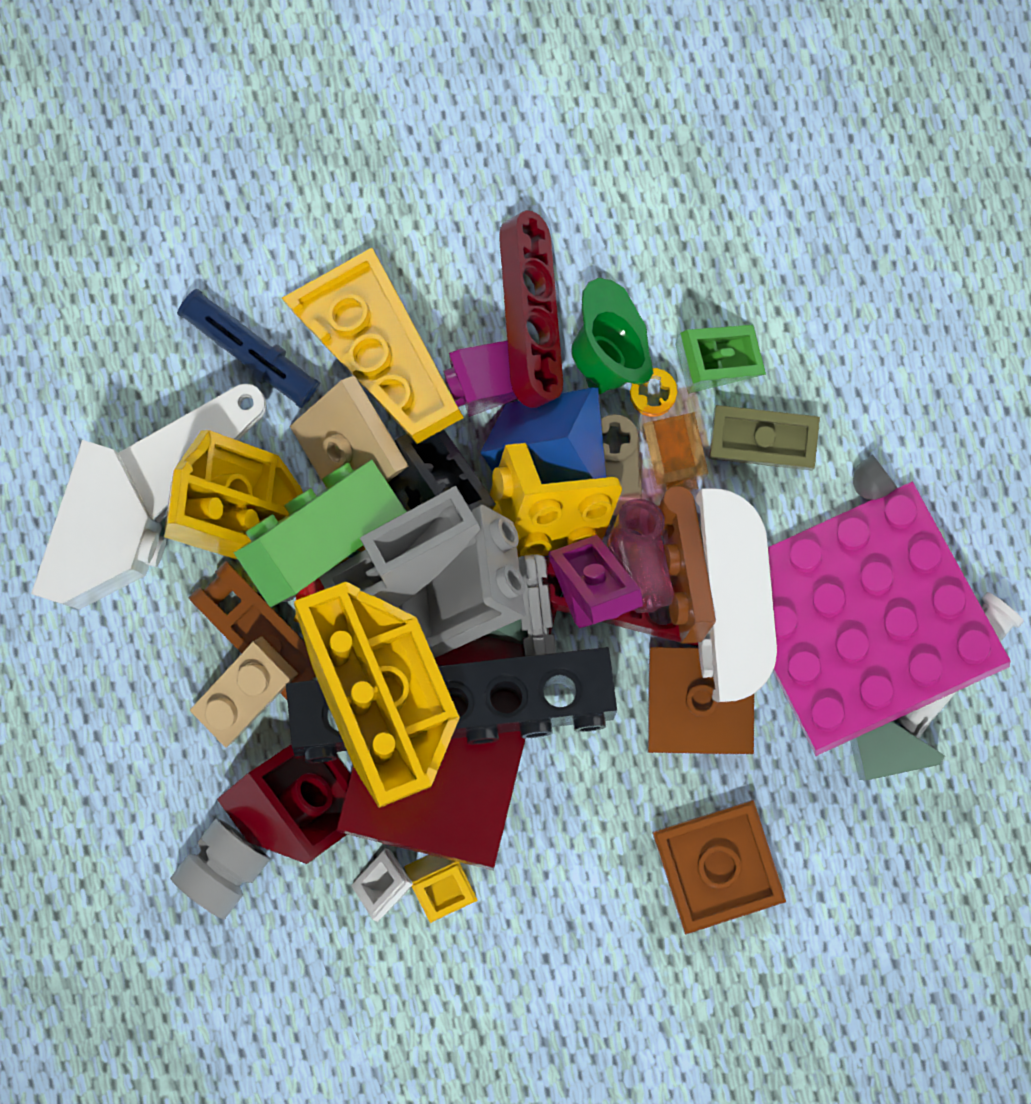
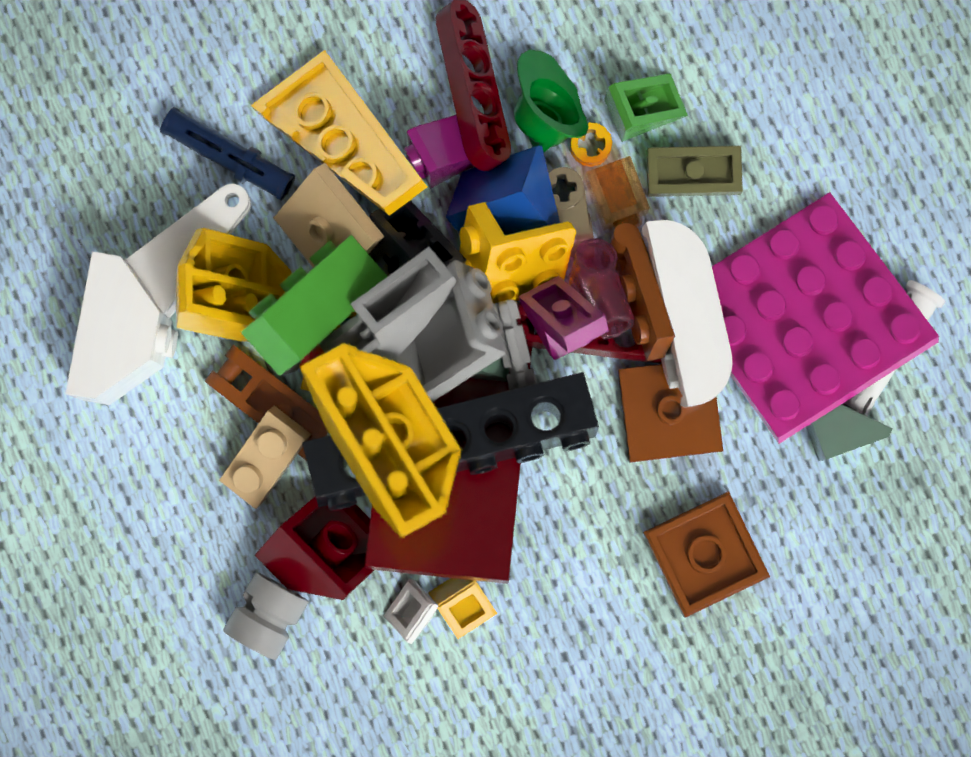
camera: 10 degrees left, 0 degrees up
(872, 480) = (794, 195): dark grey hinge -> none

